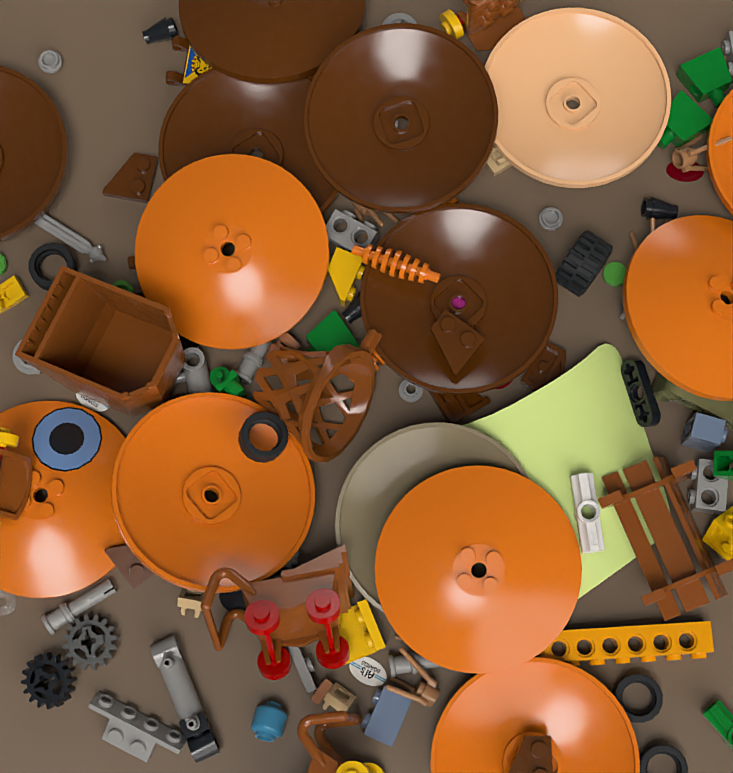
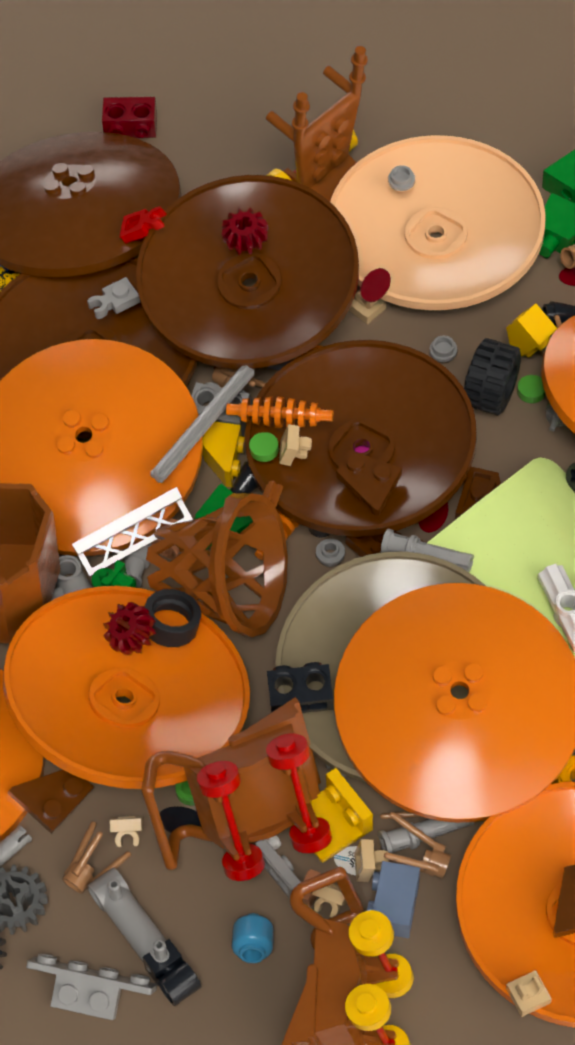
camera: 10 degrees left, 20 degrees down
(147, 632) = (79, 872): none -> medium nougat plant
(225, 447) = (129, 628): none -> dark red gear
(250, 335) = (125, 522): none -> white fence
(287, 112) = (116, 296): none -> light grey plate
(318, 50) = (138, 224): none -> red plate
(330, 258) = (202, 424): none -> light grey axle
(350, 537) = (299, 679): none -> black brick
(373, 678) = (367, 860): none -> tan tile
(375, 292) = (264, 447): none -> bright green tile
(399, 300) = (293, 446): none -> tan tile
(408, 91) = (244, 231): none -> dark red gear
(474, 420) = (395, 542): none -> light grey pin
(507, 151) = (375, 285): none -> dark red sticker
(555, 50) = (401, 178): none -> light grey plate
(626, 228) = (530, 330): none -> yellow slope

